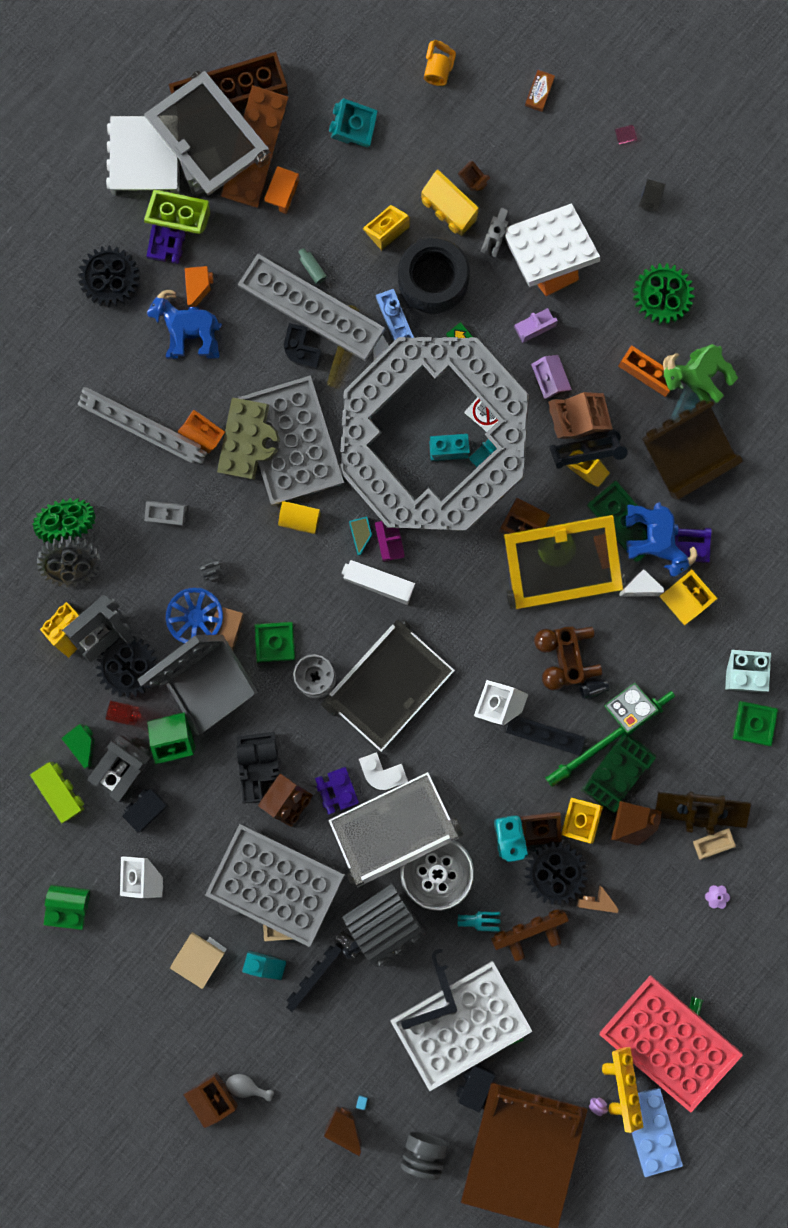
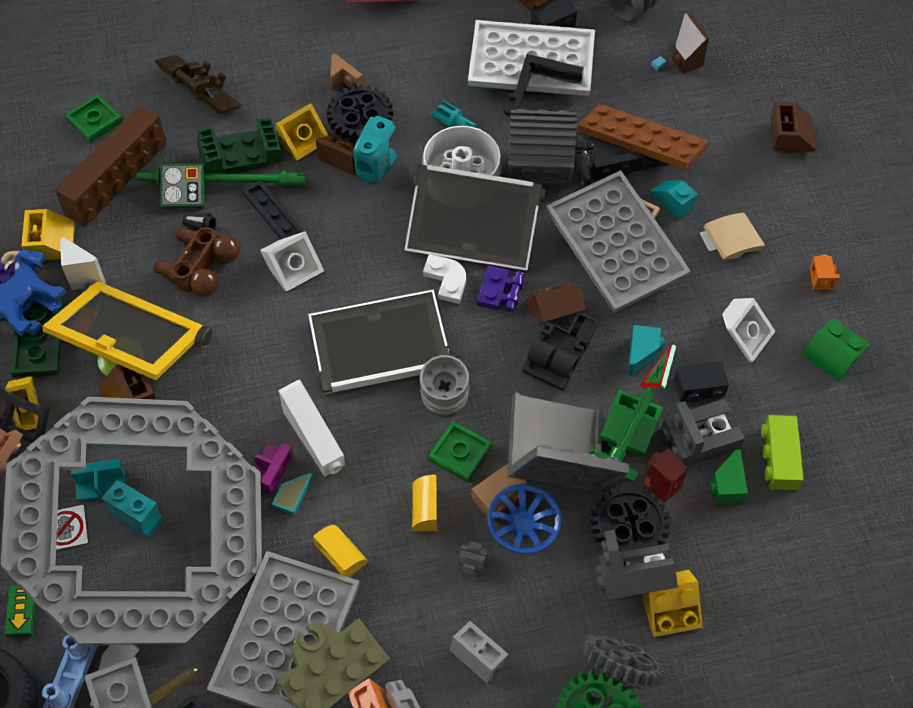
camera: 145 degrees left, 25 degrees down
(112, 971) = (823, 273): none -> orange brick
(166, 773) = (654, 381): none -> green piece
(201, 810) = (644, 347): none -> teal slope
(243, 1086) = (754, 124): light grey piece -> none
(268, 585) = (424, 504): none -> yellow brick
(320, 1002) = (643, 136): none -> dark orange plate
(537, 925) = (419, 89): reddish brown plate -> none
(635, 823) = (257, 102): reddish brown slope -> none
(693, 684) = (111, 166): none -> reddish brown brick
(712, 896) = (245, 28): lavender plant -> none
(714, 844) = (218, 61): tan tile -> none
(748, 671) = (60, 148): light aqua slope -> none

